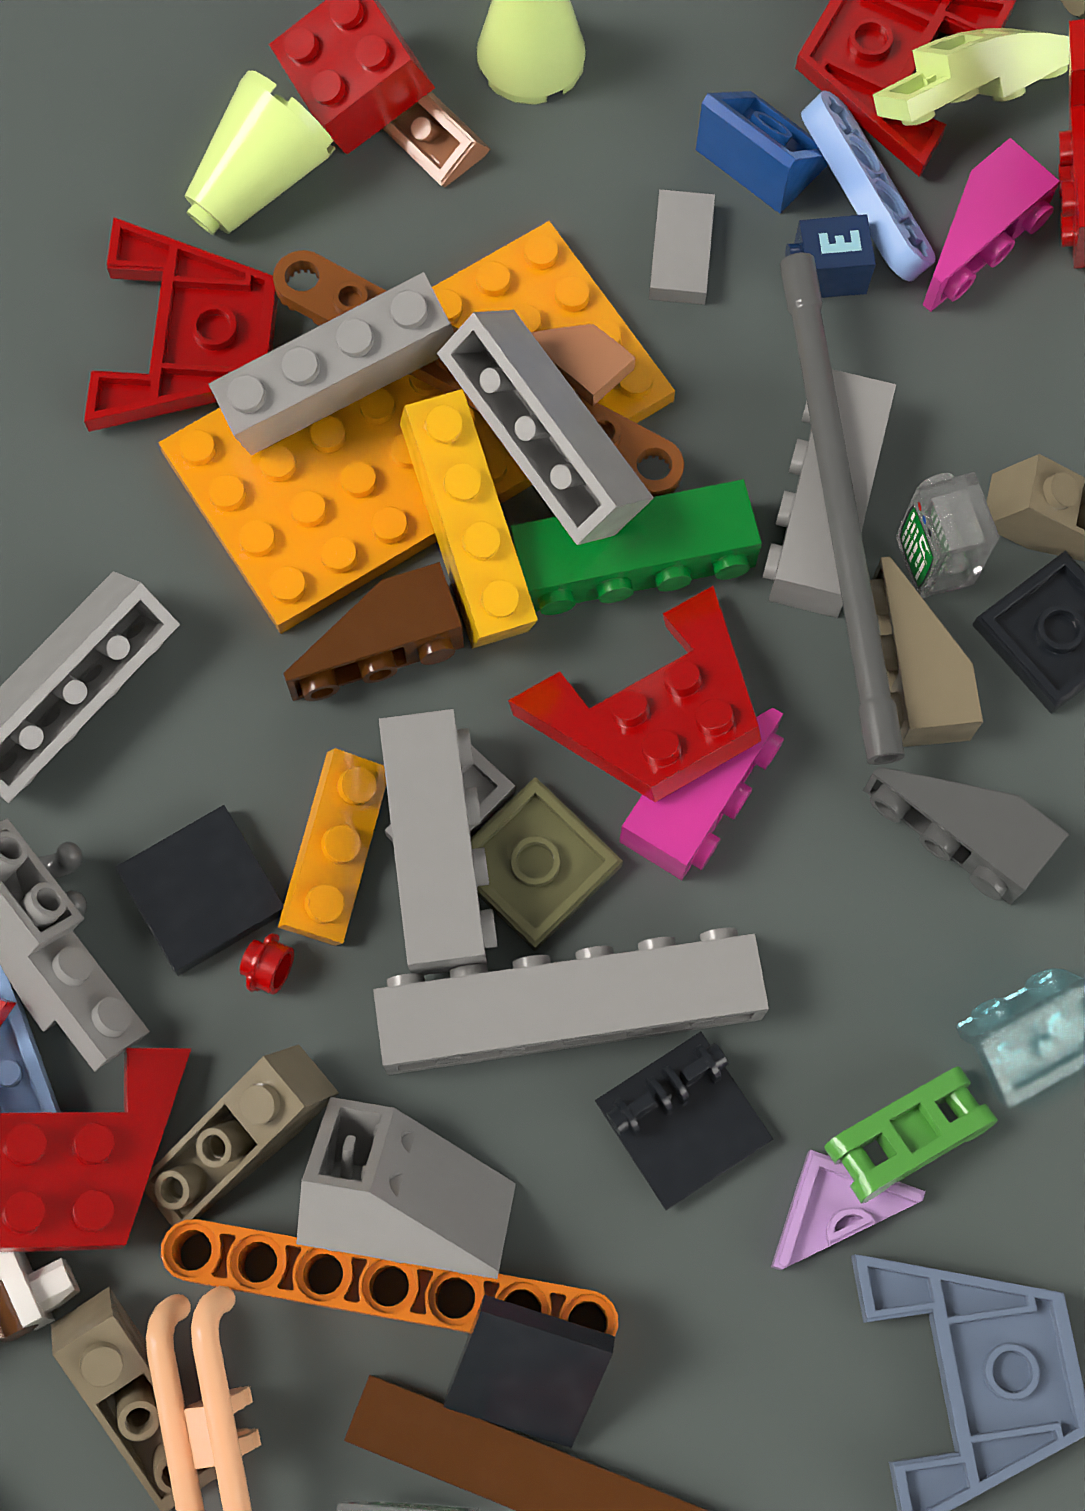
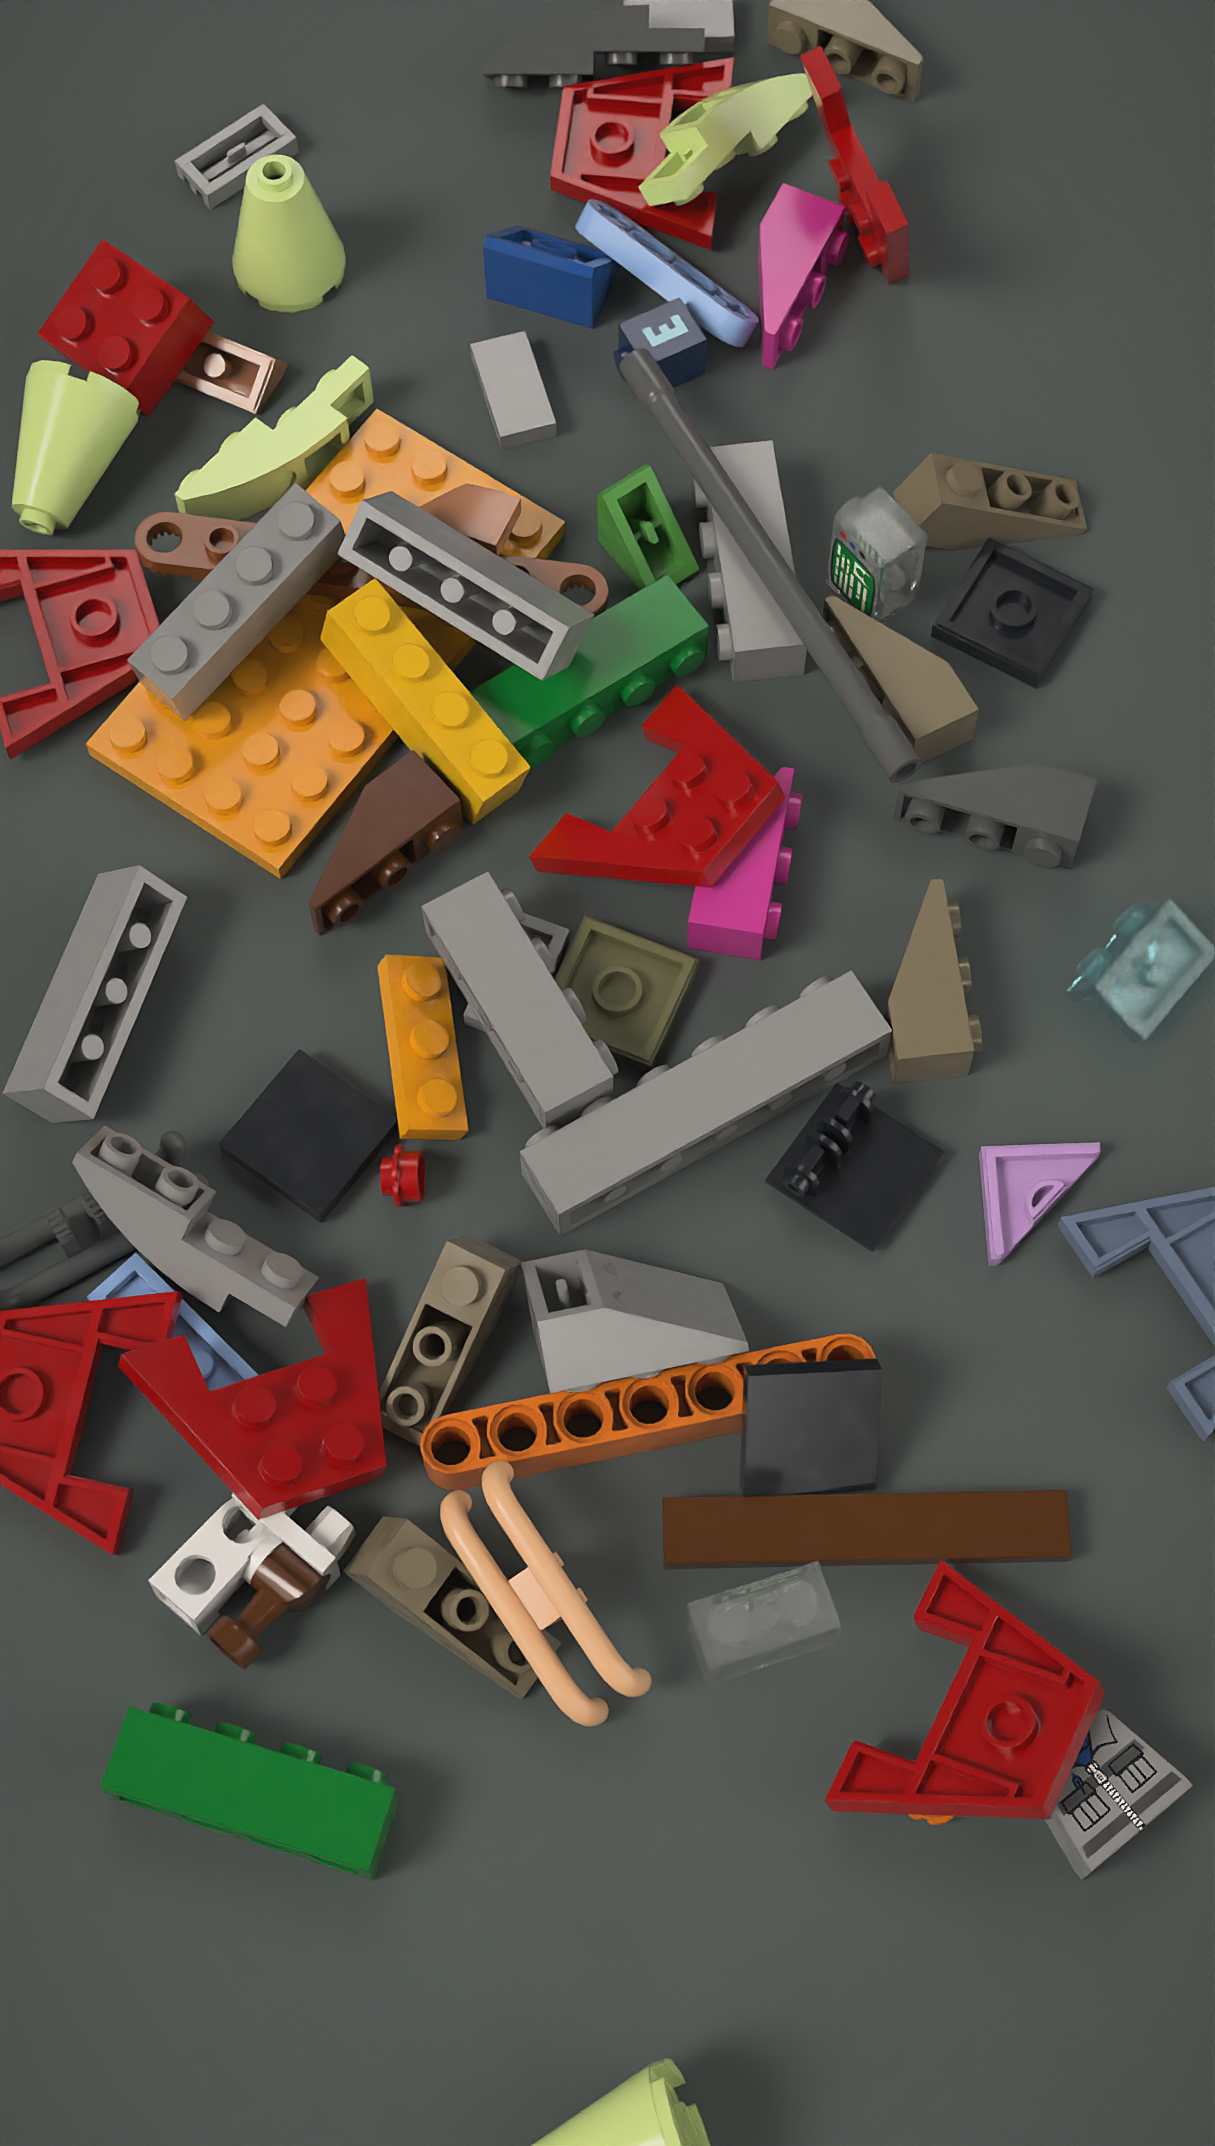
camera: 20 degrees left, 5 degrees down
(438, 241) = (264, 463): none -> yellowish green slope
(742, 427) = (642, 530): none -> bright green slope
(815, 990) = (927, 1003): none -> dark tan slope
(910, 1133) = (1065, 1094): bright green plate -> none

